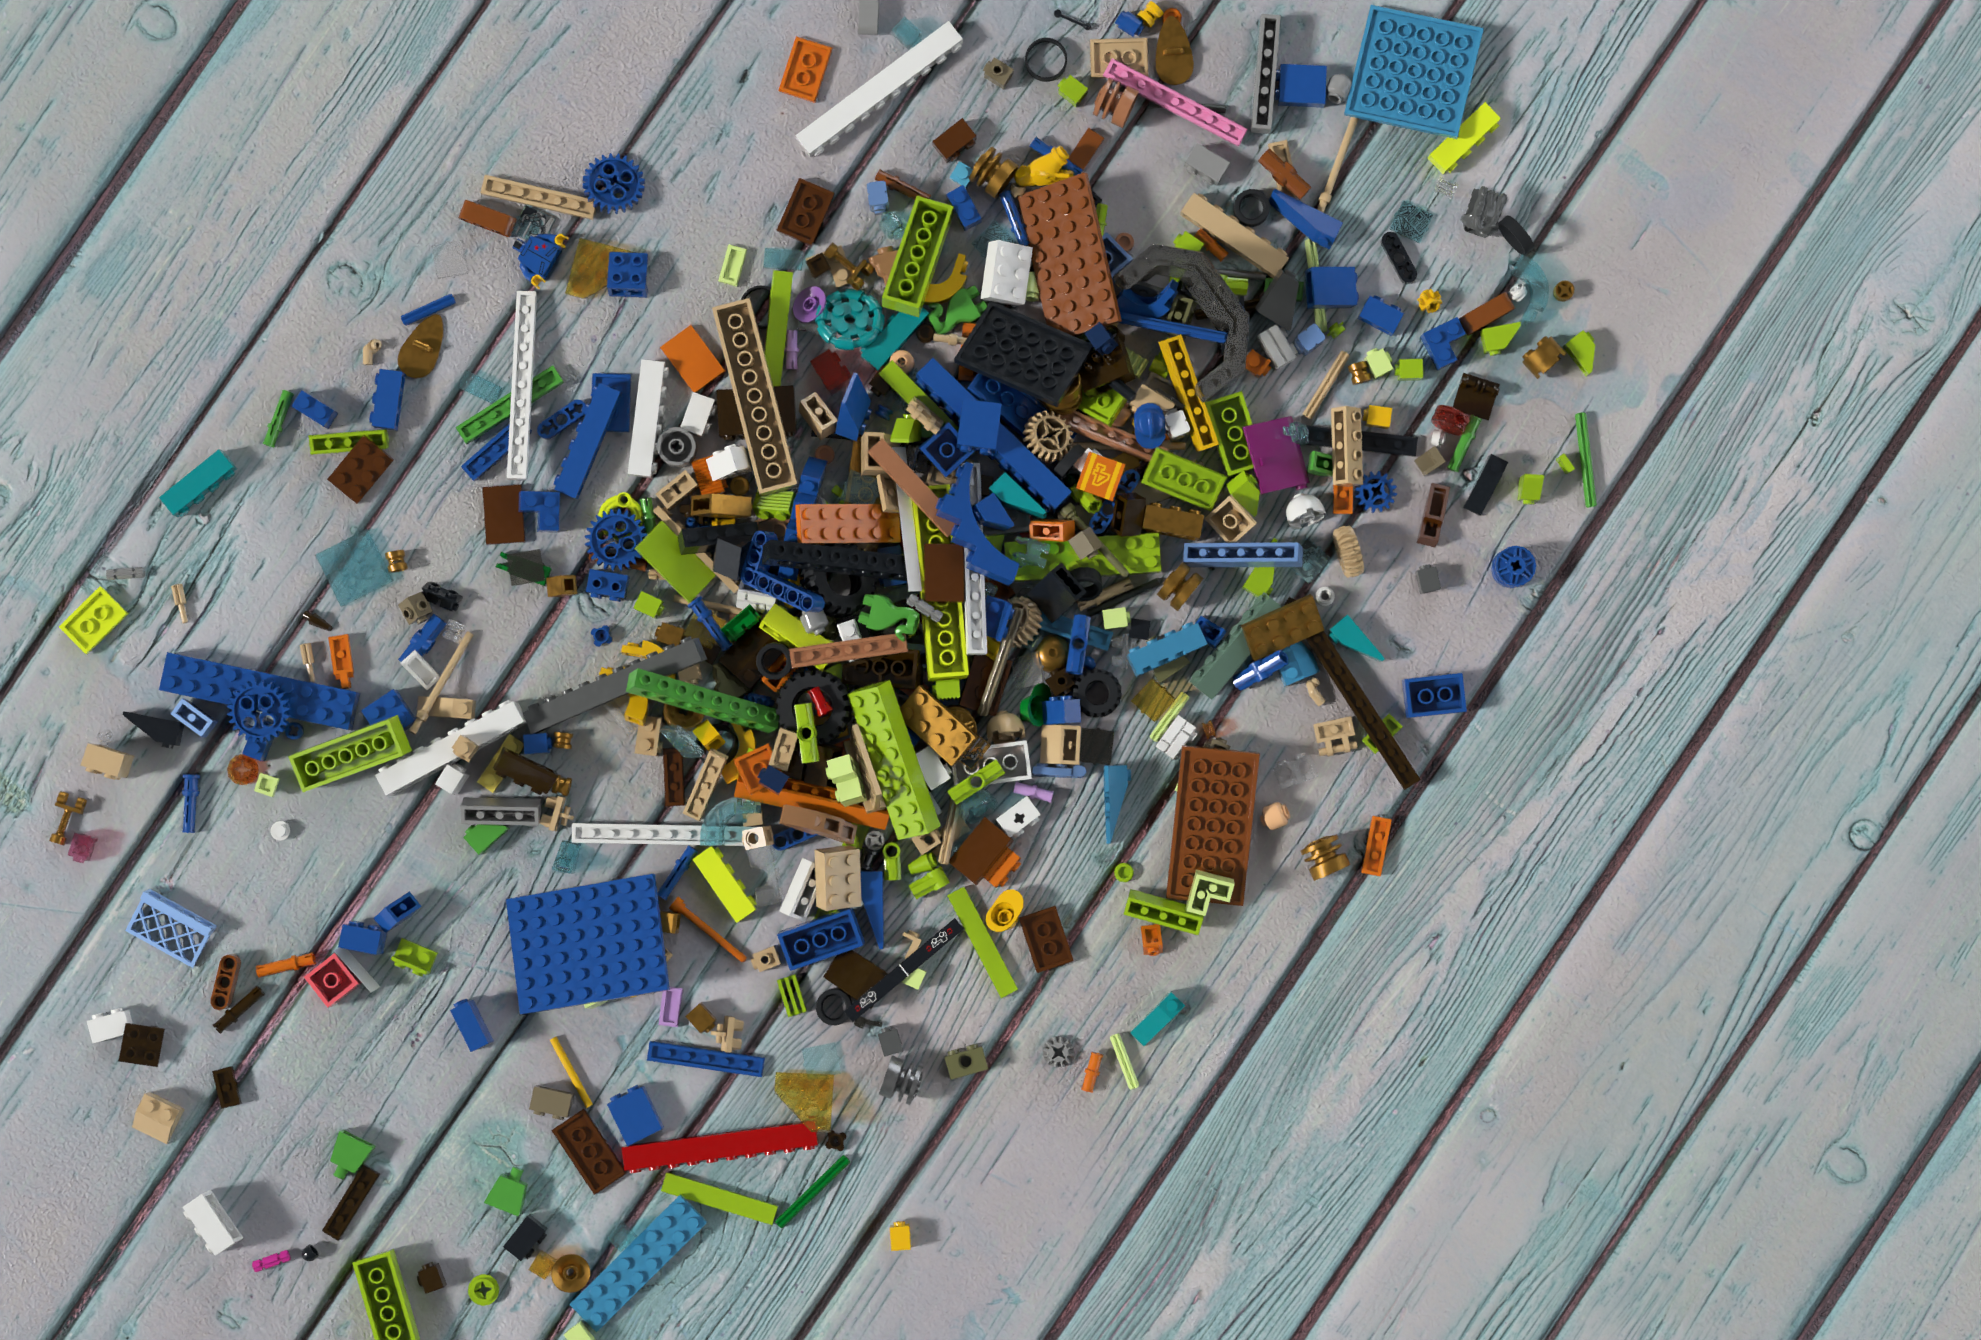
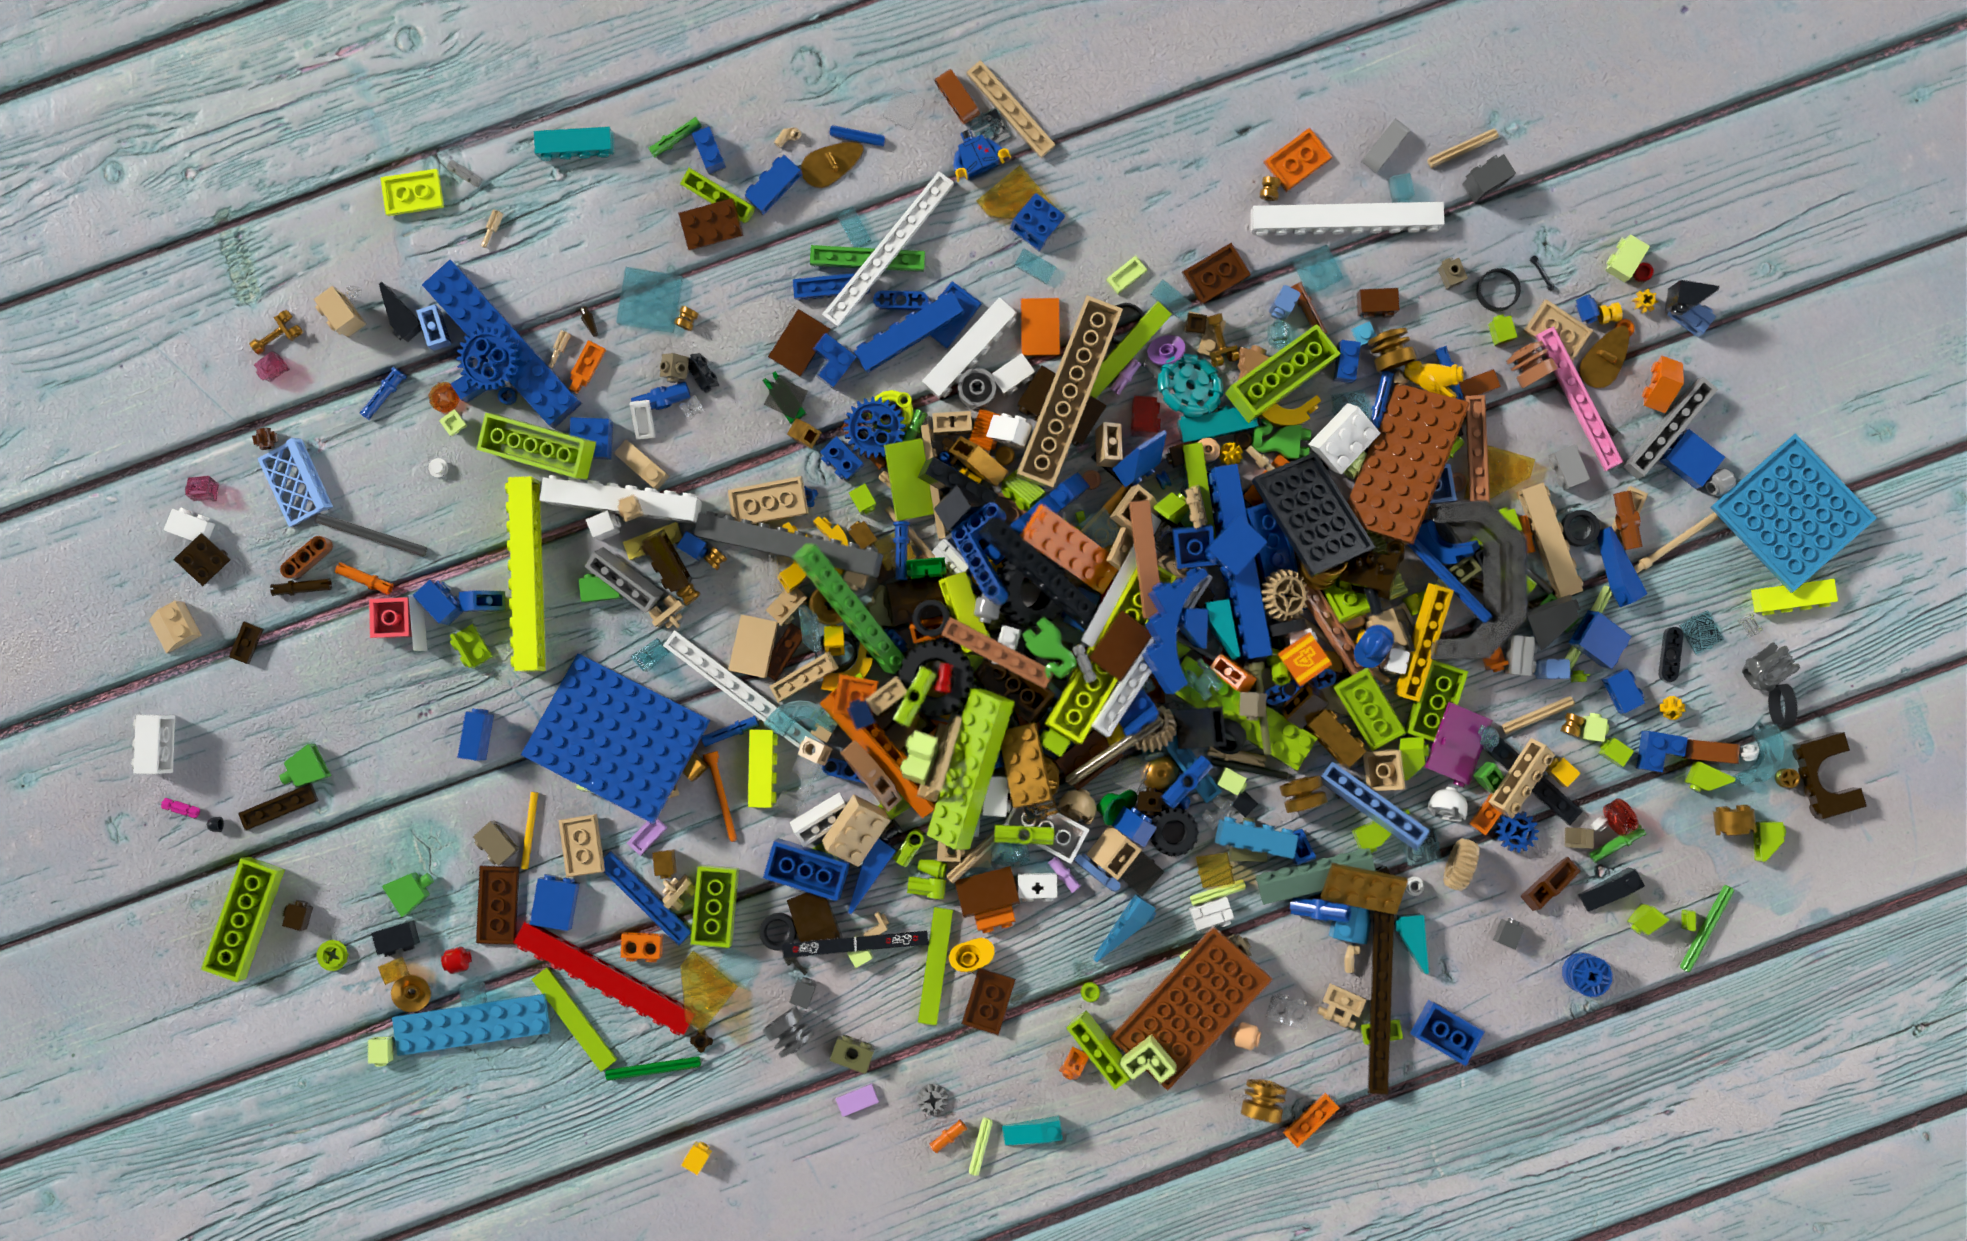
camera: 30 degrees right, 0 degrees up
(98, 988) = (201, 488): none -> clear pink brick
(120, 909) = (265, 438): none -> reddish brown gear
(265, 925) = (371, 534): none -> dark grey axle
(417, 864) = (526, 574): none -> neon yellow brick
(422, 714) = (617, 457): tan bar -> none
(573, 661) = (769, 501): none -> tan tile
(588, 1220) = (456, 960): none -> red head
(606, 198) = (1063, 147): blue gear -> none
(623, 1053) = (581, 845): none -> tan tile
(646, 789) = (753, 646): none -> tan tile
(652, 312) = (1035, 266): none -> clear light blue tile
(729, 1095) = (641, 941): none -> orange brick
(767, 1022) = (714, 906): none -> lime brick
(772, 955) = (757, 849): tan brick -> none
(786, 1004) = (745, 913): lime tile -> none
(799, 110) = (1270, 188): none -> pearl gold wheel
(875, 840) = (908, 820): light grey wheel -> none
(886, 149) = (1317, 270): none -> clear light blue plate
(923, 351) = (1230, 454): none -> yellow gear
(997, 1096) = (857, 1100): none -> lavender tile
(1101, 339) = (1385, 547): dark blue brick -> none
(1121, 203) = (1477, 448): none -> nougat tile
(1150, 211) = (1505, 470): none -> clear yellow plate
(1208, 729) = (1242, 926): clear orange bush -> none
(1235, 40) = (1665, 384): none -> orange brick
(1476, 396) = (1654, 812): dark brown hinge -> none
(1569, 260) = (1809, 758): none -> dark brown arch

